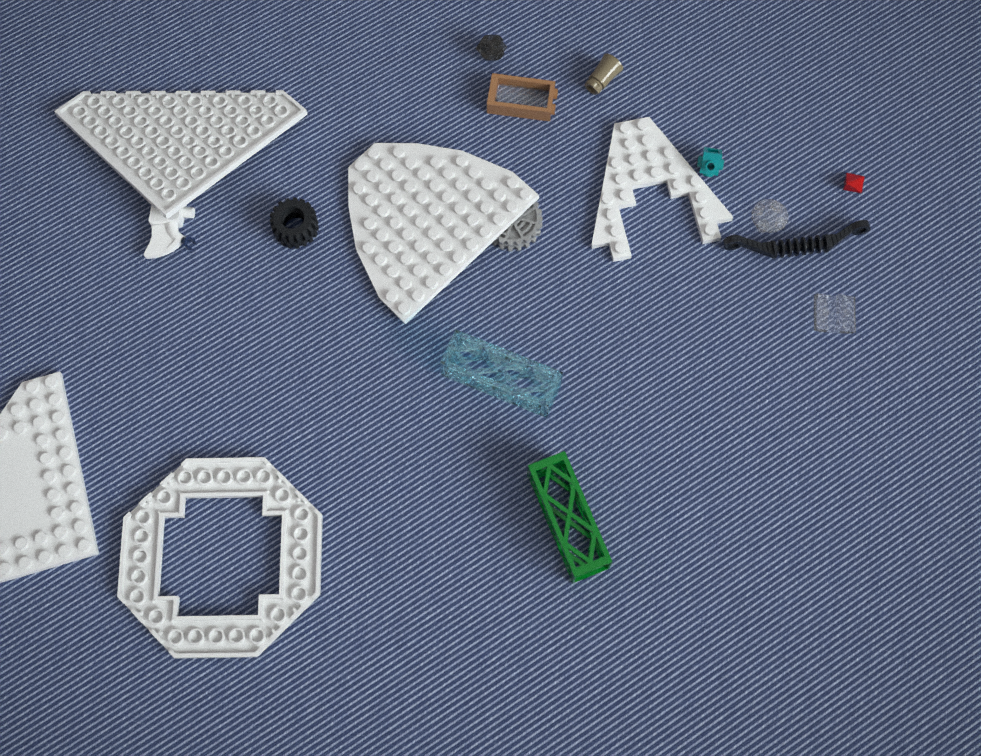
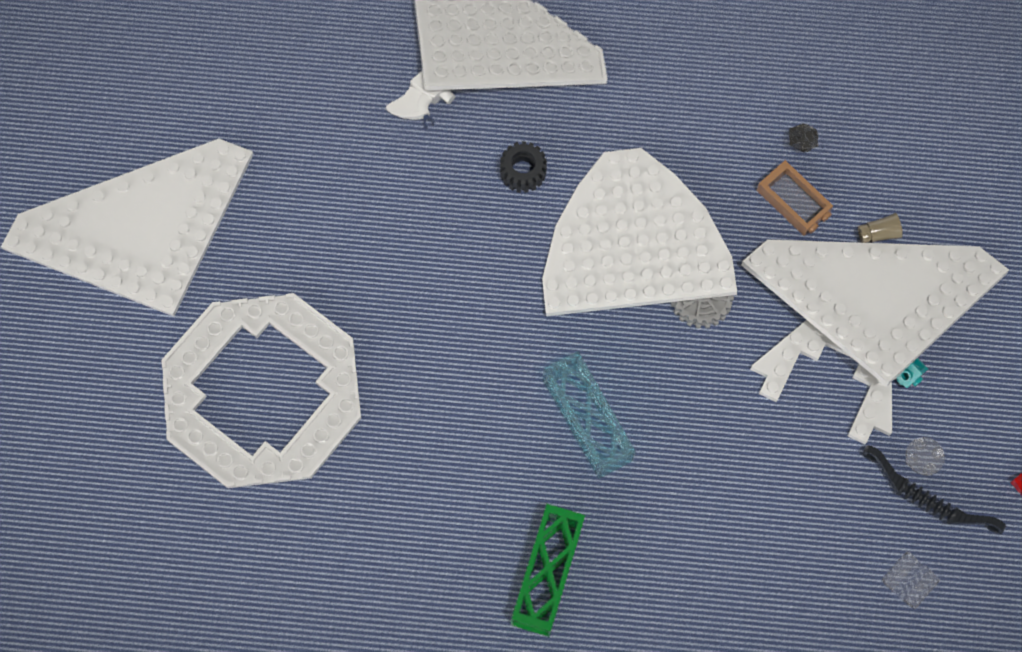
camera: 35 degrees right, 0 degrees up
(640, 126) = (877, 297): none -> white plate

